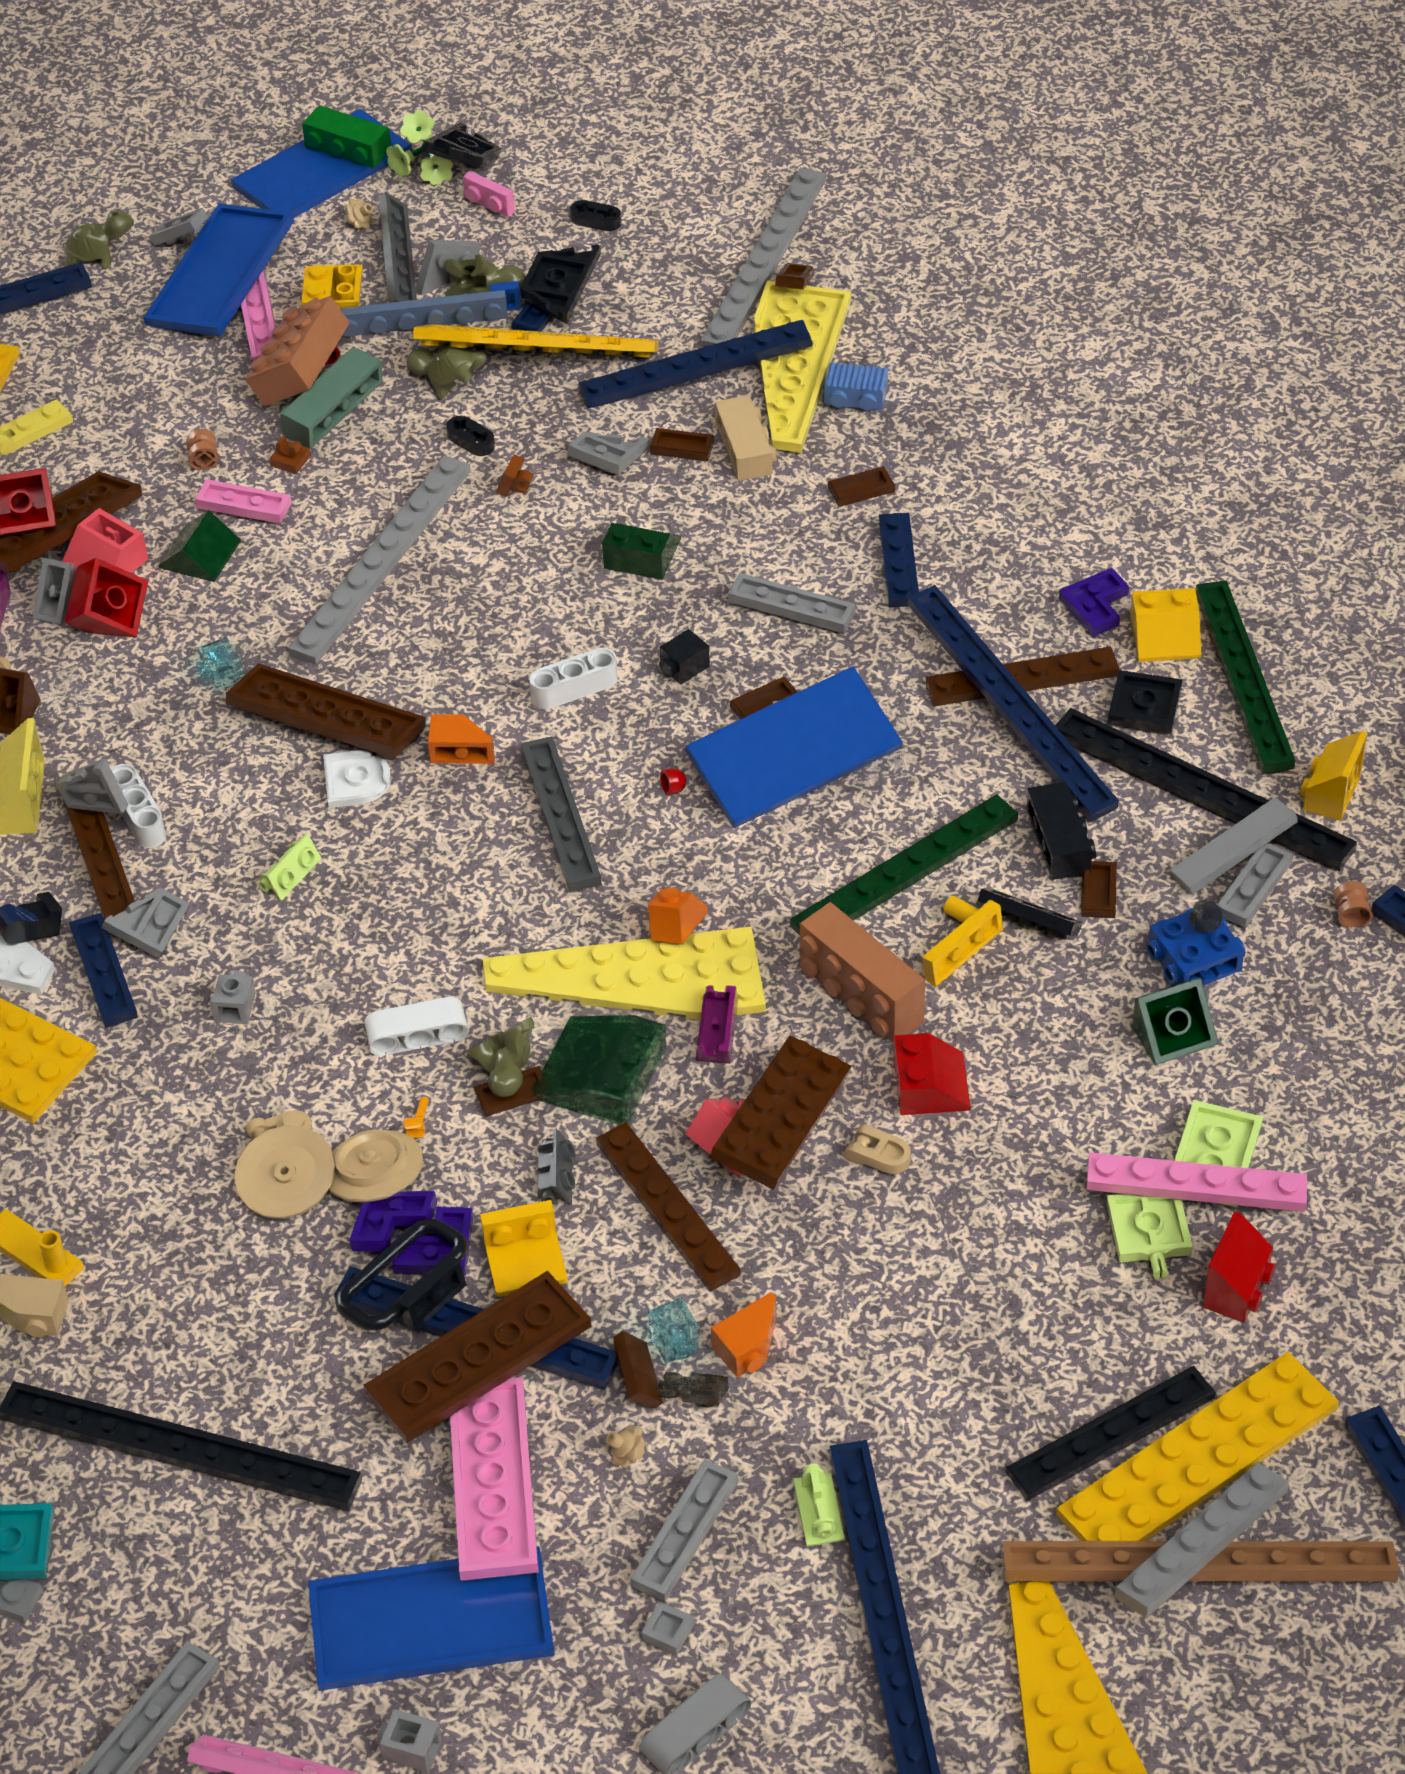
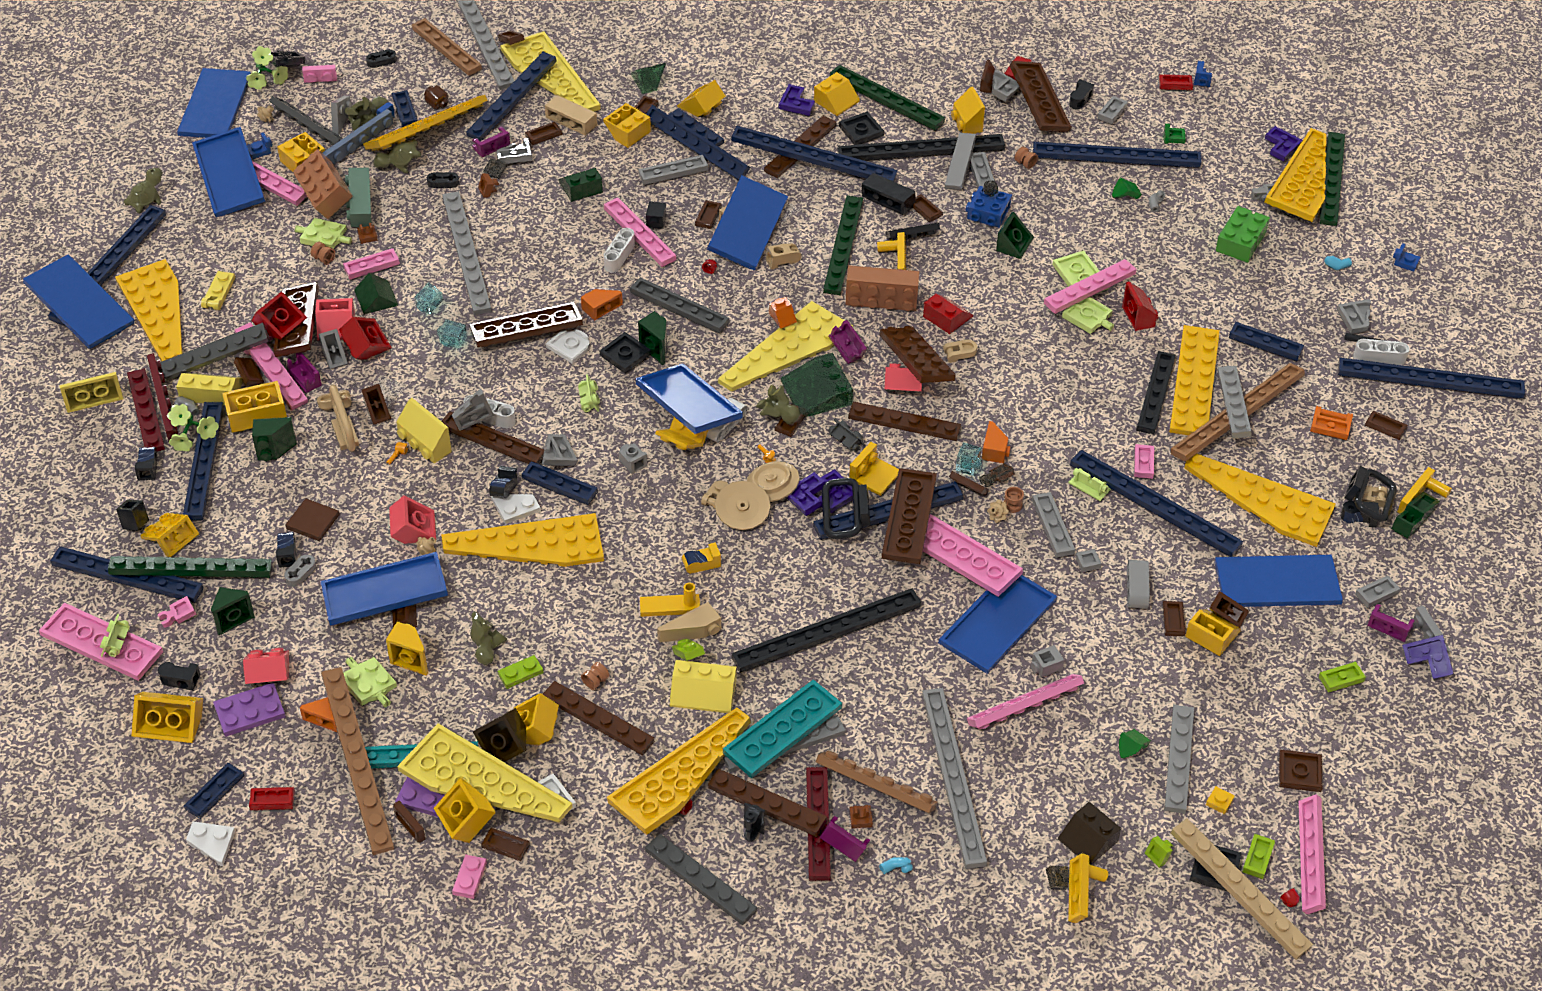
camera: 45 degrees left, 0 degrees up
(145, 1213) = (702, 559): none -> yellow leg
(173, 229) = (182, 163): light grey plate -> none
(237, 424) = (324, 231): none -> yellowish green plate
(245, 594) = (428, 298): none -> clear light blue brick
(297, 257) = (260, 148): none -> blue bracket
(328, 1013) = (682, 436): none -> yellow bracket
(346, 136) = (218, 81): green brick -> none
(392, 960) = (689, 398): none -> tile
(406, 836) = (625, 352): none -> black plate
(459, 837) = (653, 334): none -> dark green slope
(552, 458) = (495, 168): none -> clear smoke plate
(559, 279) = (405, 92): black wing -> none
(593, 420) = (492, 143): none -> magenta hinge
(595, 310) = (436, 97): none -> reddish brown head
(635, 669) = (643, 235): none -> bright pink plate
(670, 1445) = (1014, 498): none -> nougat wheel
(697, 245) = (447, 47): none -> medium nougat plate
(791, 828) = (782, 254): none -> tan leg
(801, 497) = (628, 125): none -> yellow slope
(856, 386) = (594, 69): medium blue brick -> none
(871, 583) = (697, 143): none -> dark blue plate
(916, 442) = (648, 78): none -> clear green slope
(948, 1532) = (1144, 461): none -> bright pink plate
(956, 520) = (703, 99): none -> yellow slope
(1337, 1703) = (1331, 423): none -> orange plate

